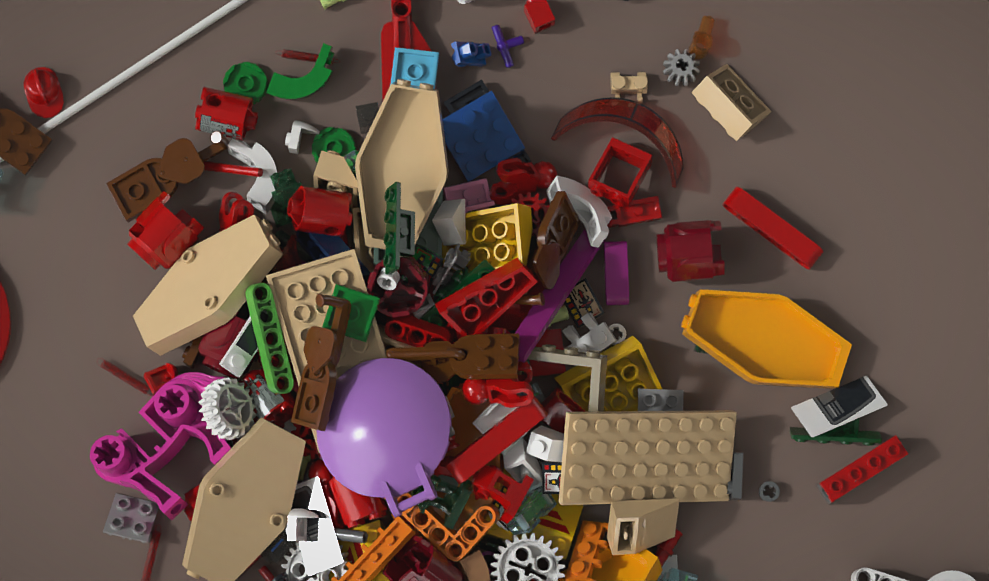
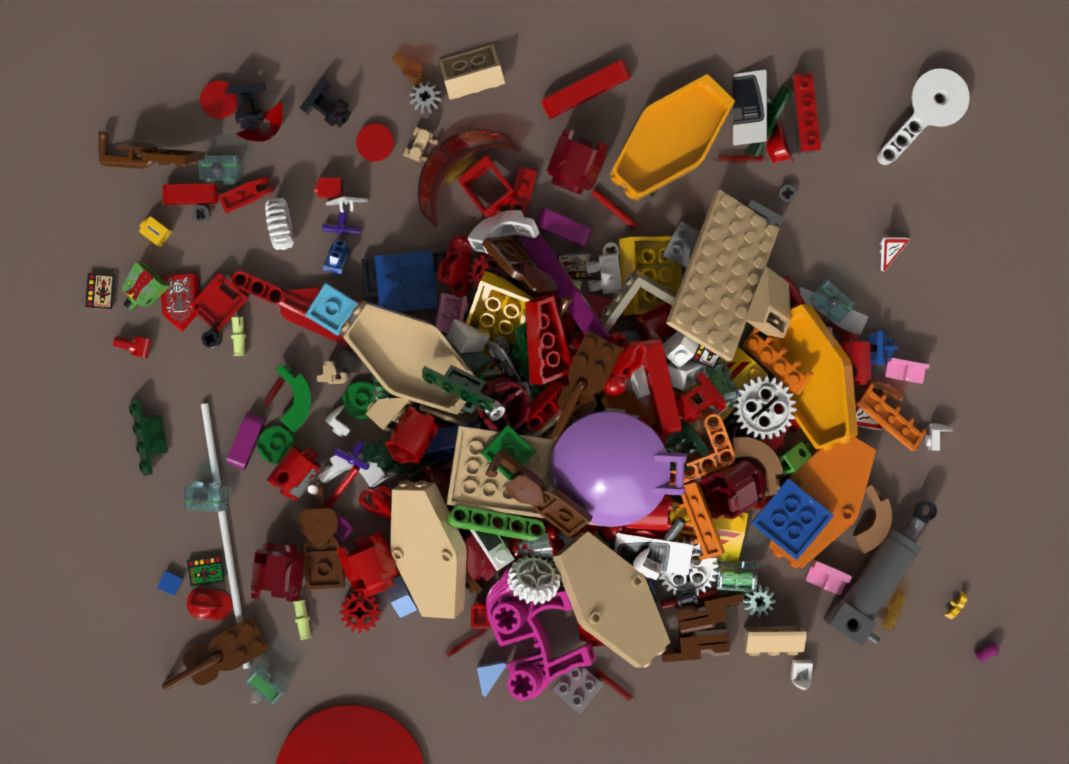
camera: 50 degrees left, 10 degrees up
(48, 42) = (170, 583): none -> blue tile
(72, 194) = (302, 619): none -> yellowish green pin
(78, 72) = (206, 570): none -> piece
(100, 253) = (369, 611): none -> red gear
(101, 417) = (489, 673): none -> light blue slope
(114, 142) = (277, 570): none -> dark red piece
(142, 285) = (401, 597): none -> light blue slope
(155, 35) = (206, 498): none -> clear light blue piece
(188, 192) = (344, 529): none -> magenta plate
(234, 50) = (245, 441): none -> magenta beam
(268, 164) = (352, 458): none -> dark purple piece
(346, 104) = (331, 373): none -> tan piece
(532, 31) = (346, 200): none -> white piece
(609, 39) = (375, 142): none -> red tile
(613, 131) = (459, 170): none -> clear yellow pin
(661, 320) = (616, 210): none -> red bar
(782, 419) = (739, 158): none -> red piece
(816, 456) = (778, 147): none -> red piece

